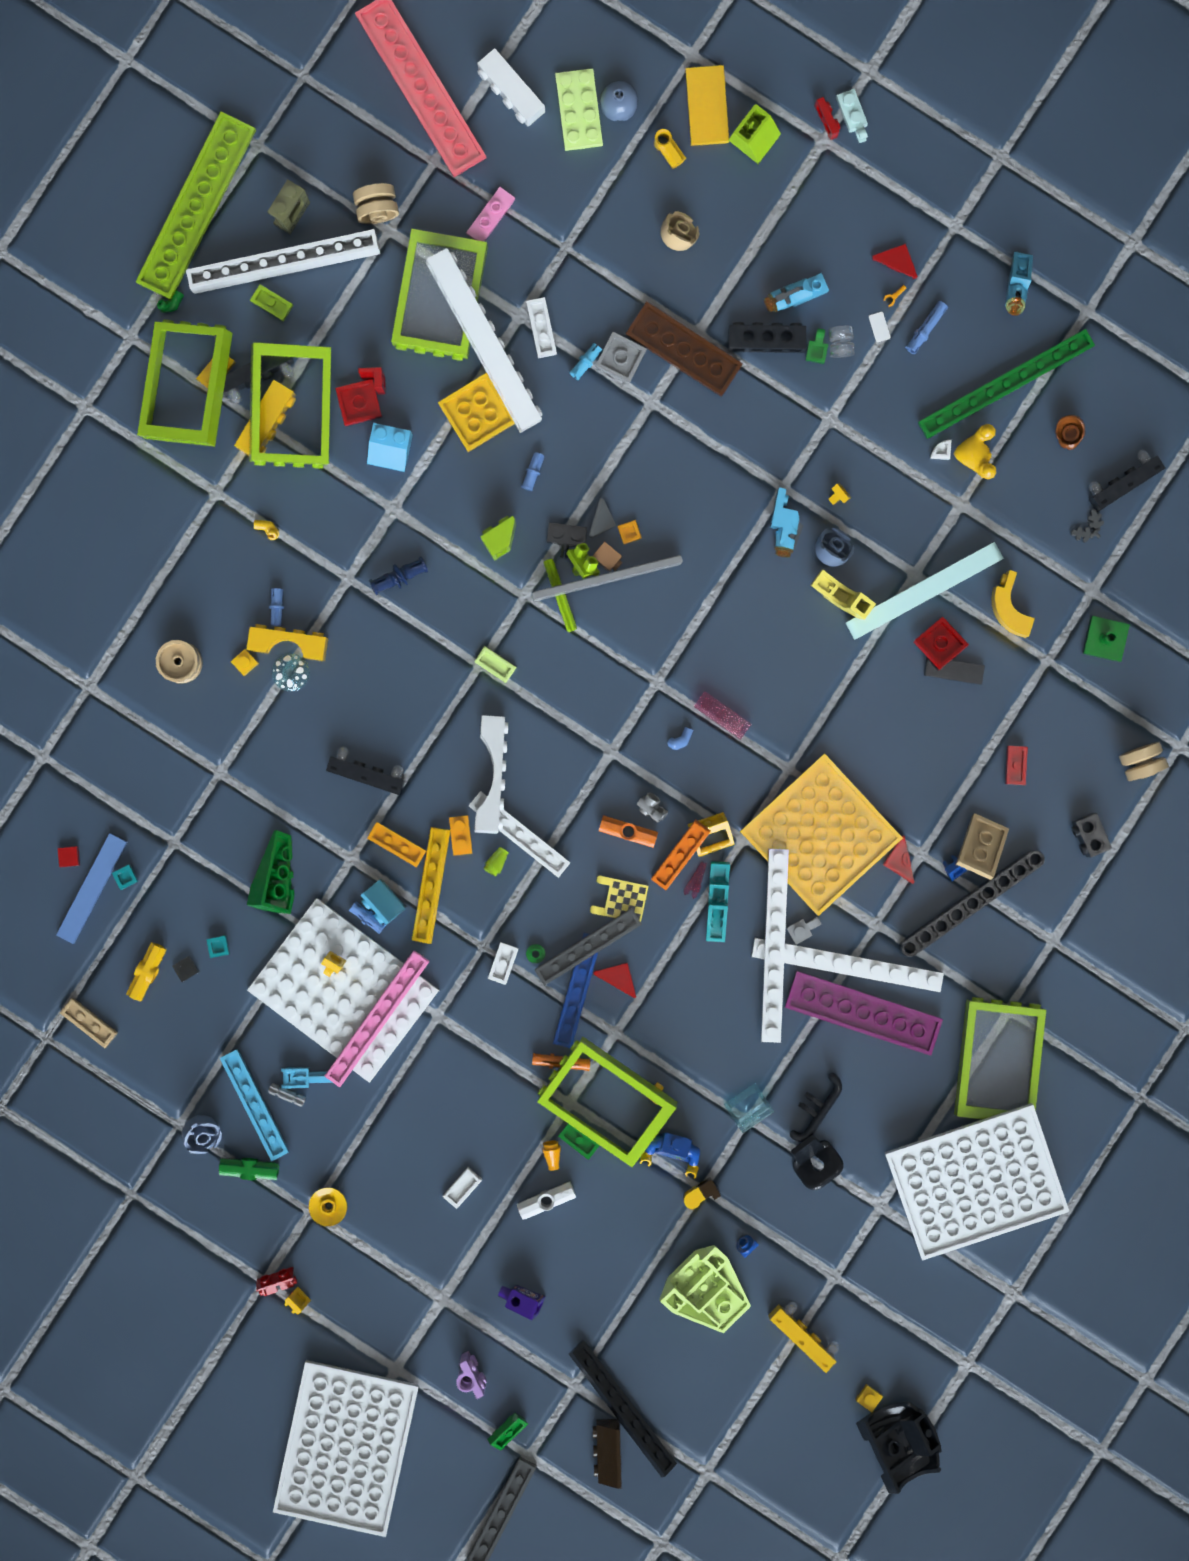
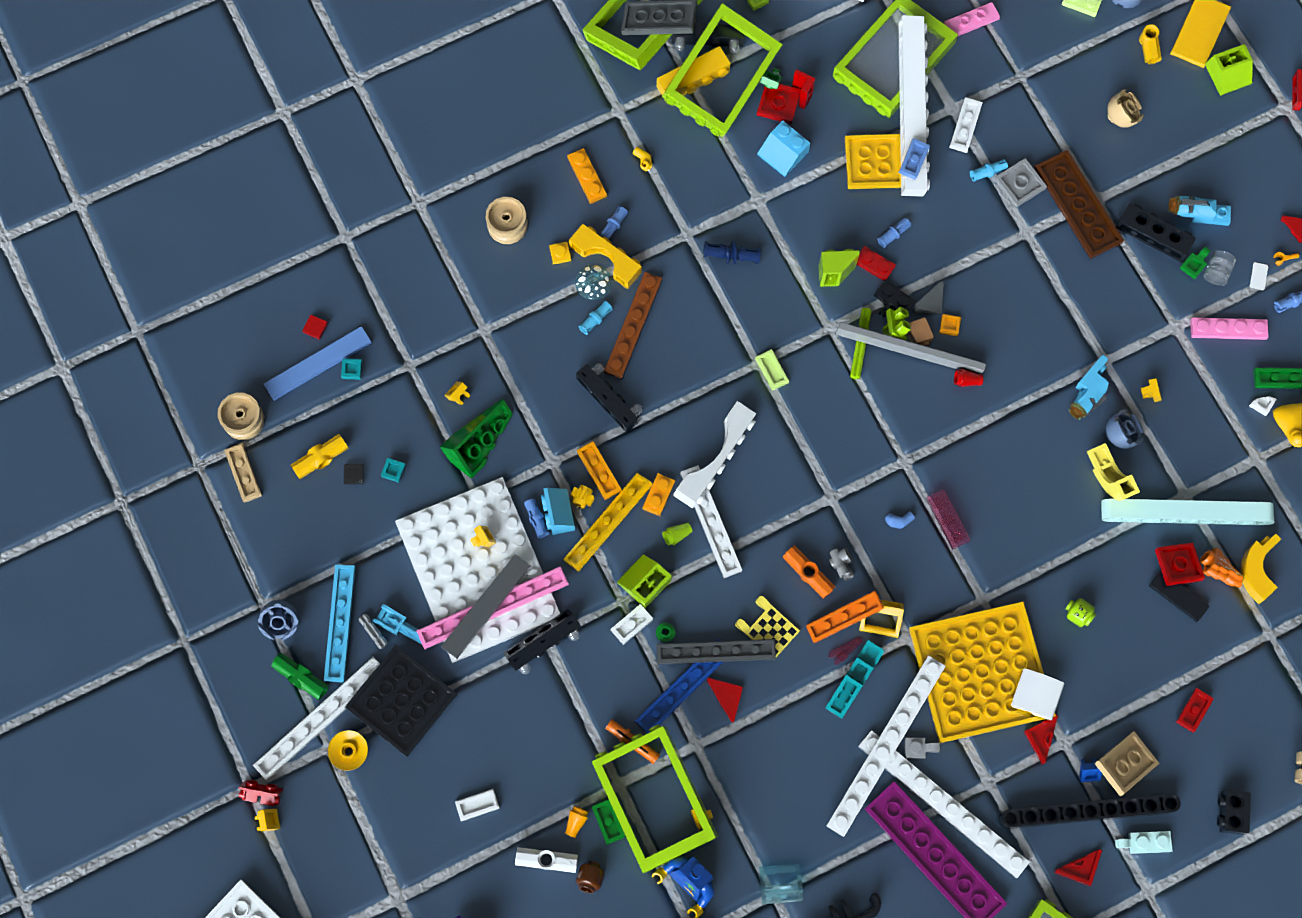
camera: 30 degrees right, 15 degrees down
(45, 982) = (241, 416): none -> tan wheel
(203, 387) = (659, 17): none -> dark grey tile
(225, 574) = (587, 176): none -> light orange plate
(230, 844) = (456, 391): none -> yellow tile
(287, 1192) = (313, 723): none -> white tile
(312, 706) = (595, 317): none -> medium azure pin
(341, 385) = (772, 79): none -> green plate
(347, 1140) = (401, 700): none -> black plate
(349, 693) = (633, 325): none -> dark orange plate
(371, 1022) = (486, 606): none -> dark grey tile
(396, 876) = (582, 496): none -> yellow gear
(435, 1021) = (542, 639): none -> black piece
(492, 920) = (645, 580): none -> lime slope
(514, 397) = (914, 159): none -> medium blue plate
(532, 511) = (875, 263): none -> red plate
(590, 1193) = (590, 877): none -> reddish brown head
(671, 575) = (967, 378): none -> red cone
(877, 394) = (1229, 328): none -> bright pink plate
(878, 735) = (1080, 612): none -> lime head
(878, 829) = (1037, 694): none -> white slope
(976, 626) = (1220, 568): none -> orange rock
(989, 954) = (1082, 869): none -> red tile
(1031, 901) = (1146, 842): none -> light aqua plate

